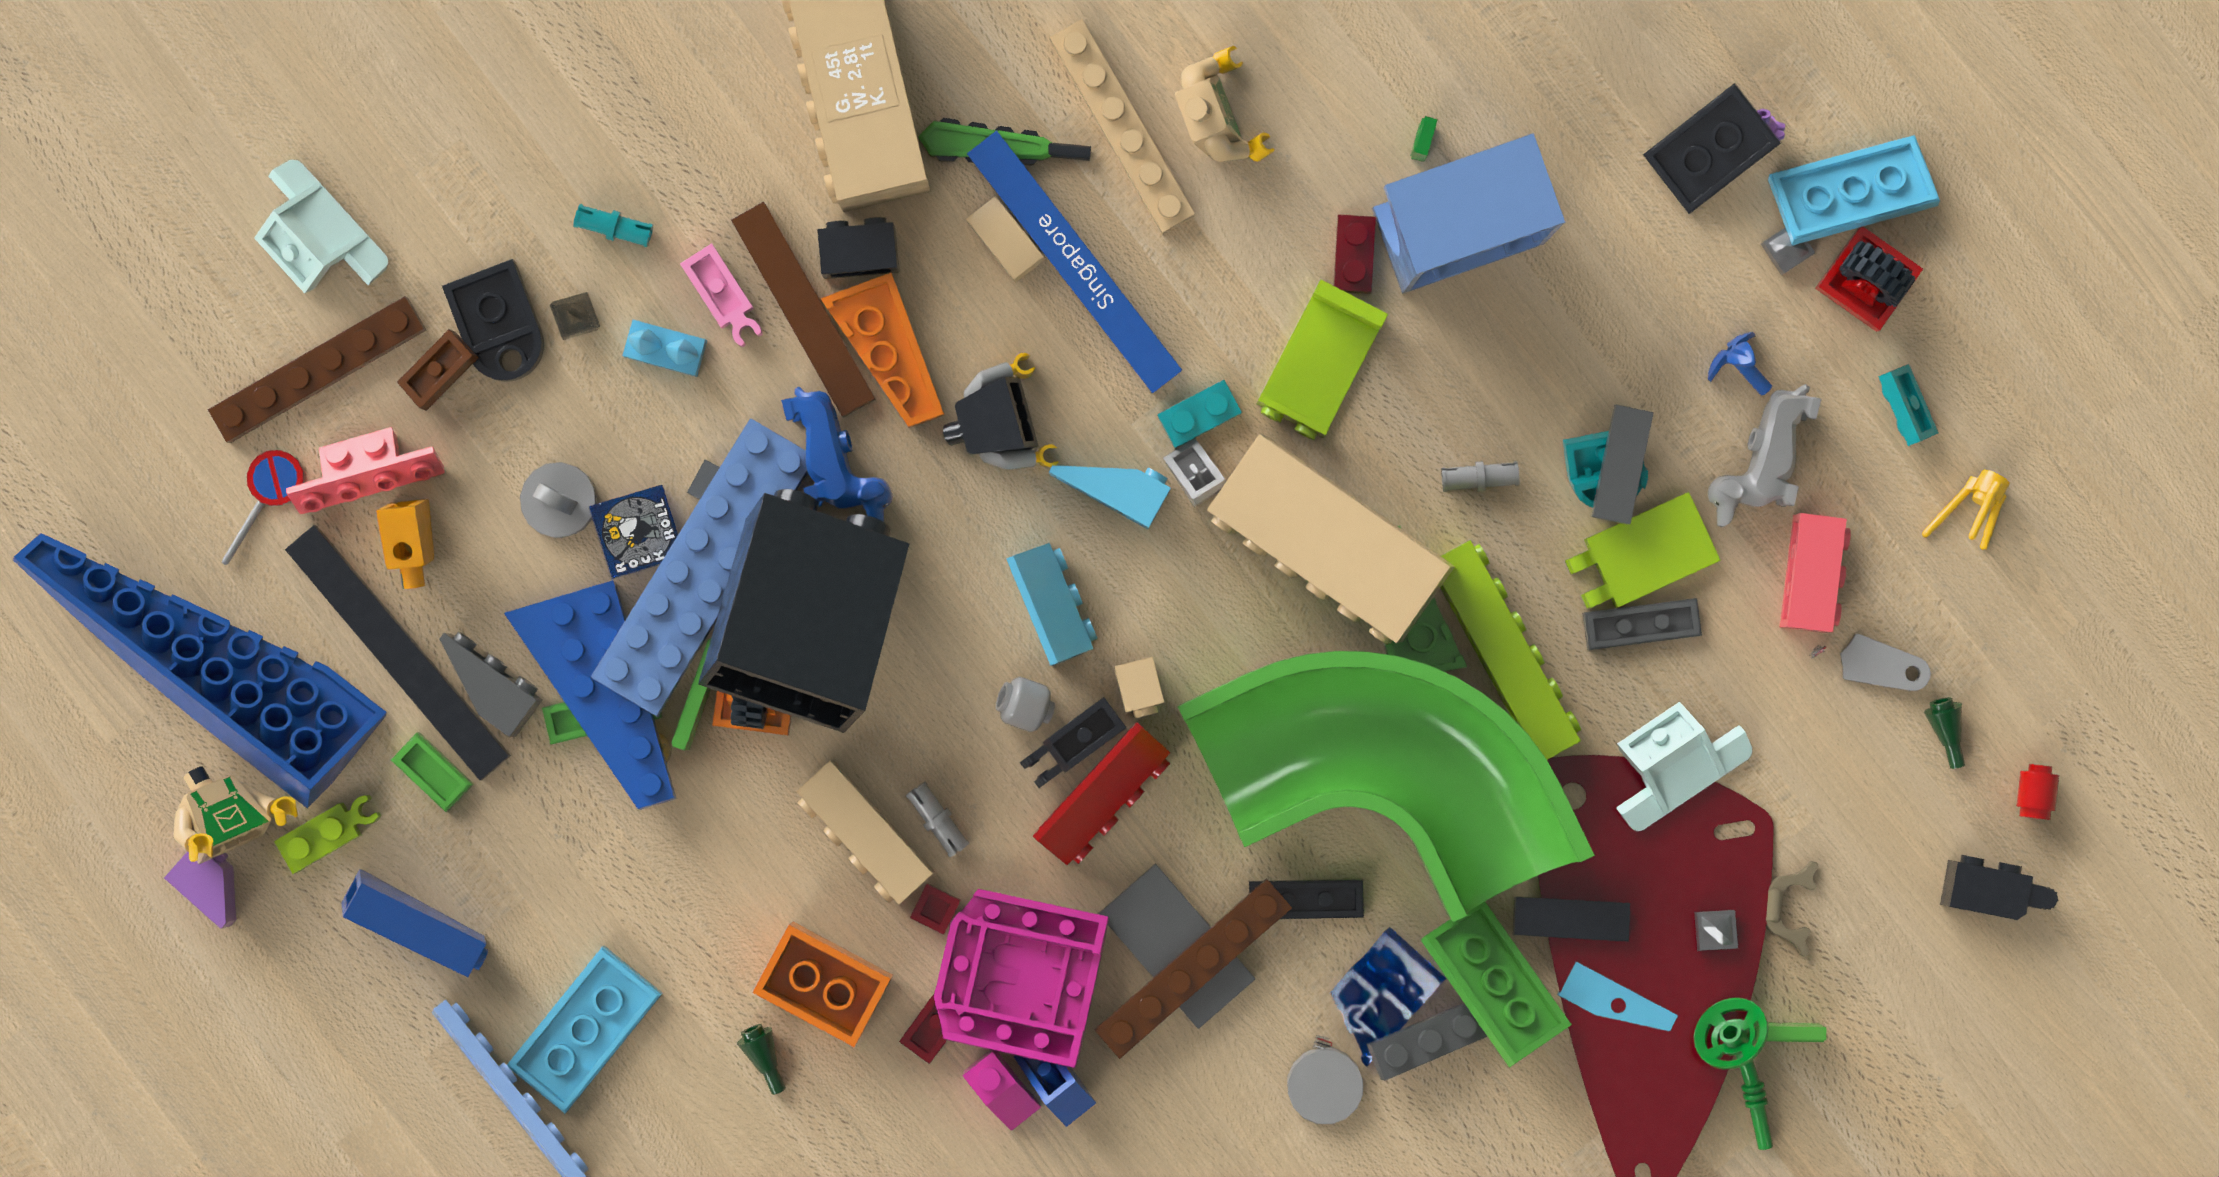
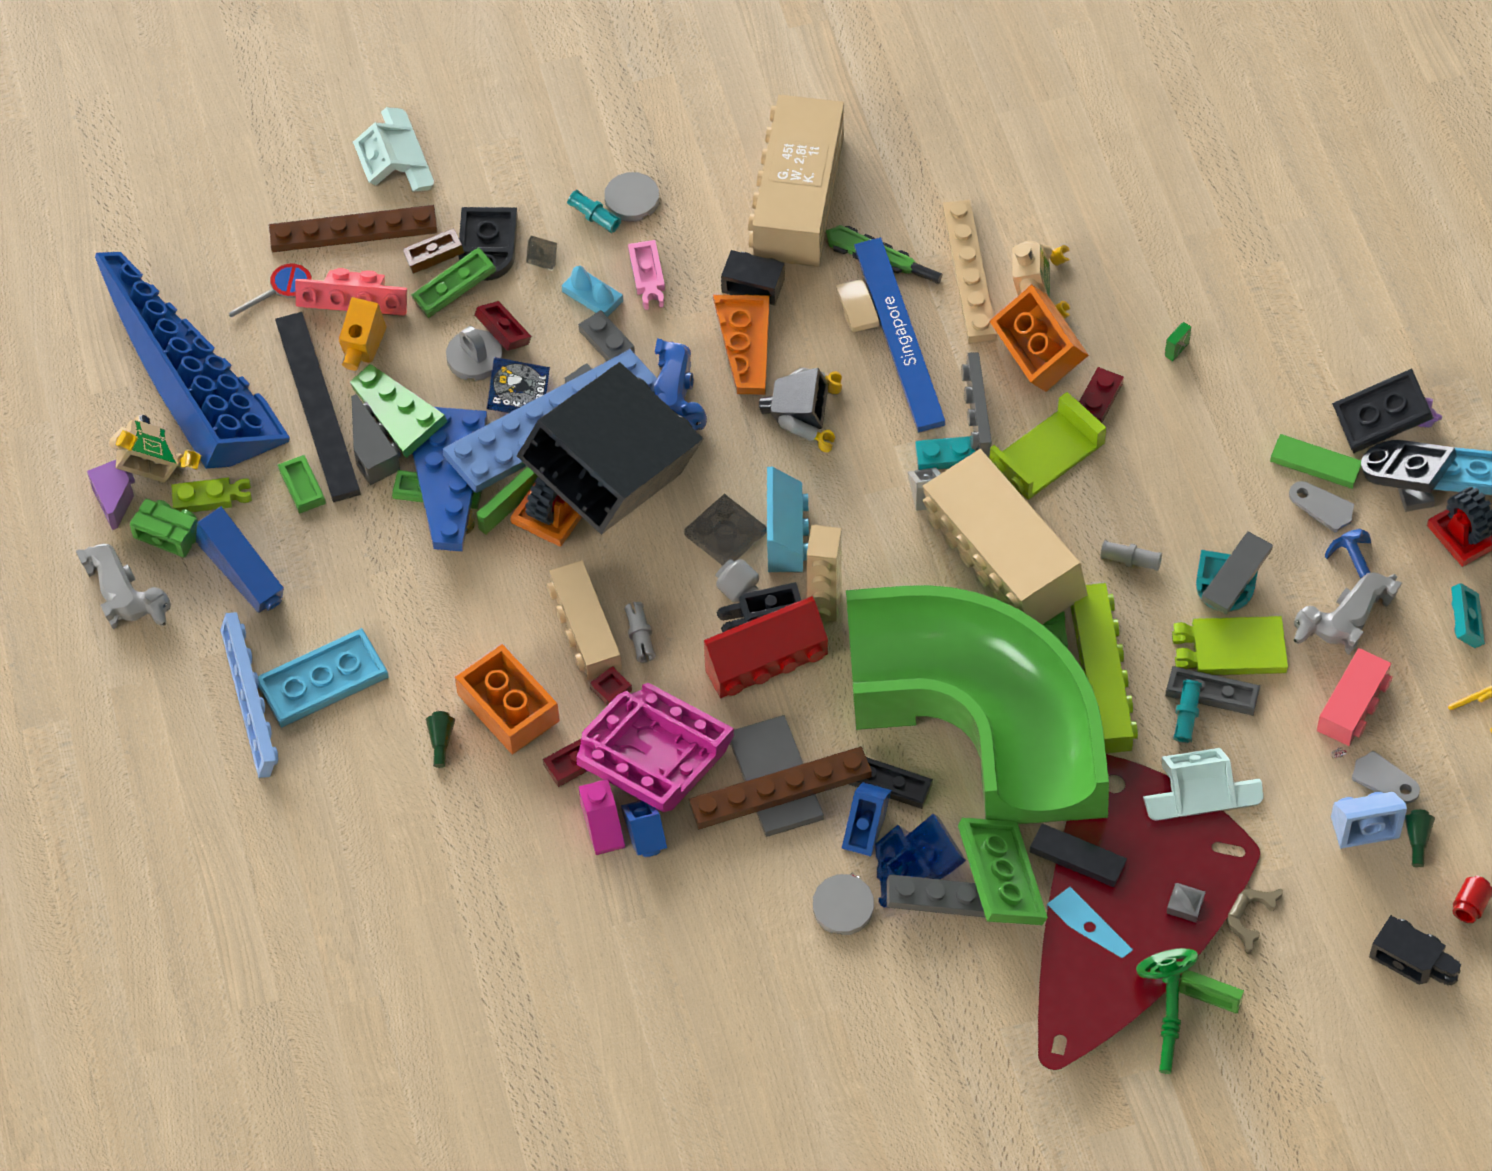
camera: 25 degrees right, 30 degrees down
(283, 1016) = (116, 588): none -> light grey animal
(297, 907) = (165, 527): none -> bright green brick
(484, 406) = (453, 282): none -> bright green tile
(505, 629) = (400, 411): none -> wing
(576, 447) = (502, 325): none -> dark red plate
(650, 180) = (632, 196): none -> light grey tile
(711, 408) = (605, 336): none -> dark grey plate
(803, 309) = (698, 302): reddish brown tile -> none
(978, 632) = (725, 530): none -> clear smoke plate
(1123, 490) = (867, 474): medium azure slope -> none
(1221, 351) = (975, 396): none -> dark grey plate
(1256, 213) = (1038, 338): none -> orange brick
(1308, 965) = (866, 818): none -> blue slope
(1468, 213) = (1186, 373): medium blue piece -> none
(1626, 672) = (1187, 711): none -> teal pin
(1651, 247) = (1316, 461): none -> bright green tile
(1682, 309) = (1322, 505): none -> light grey piece
(1771, 220) = (1407, 464): none -> black tile
(1886, 735) = (1368, 819): none -> light blue slope

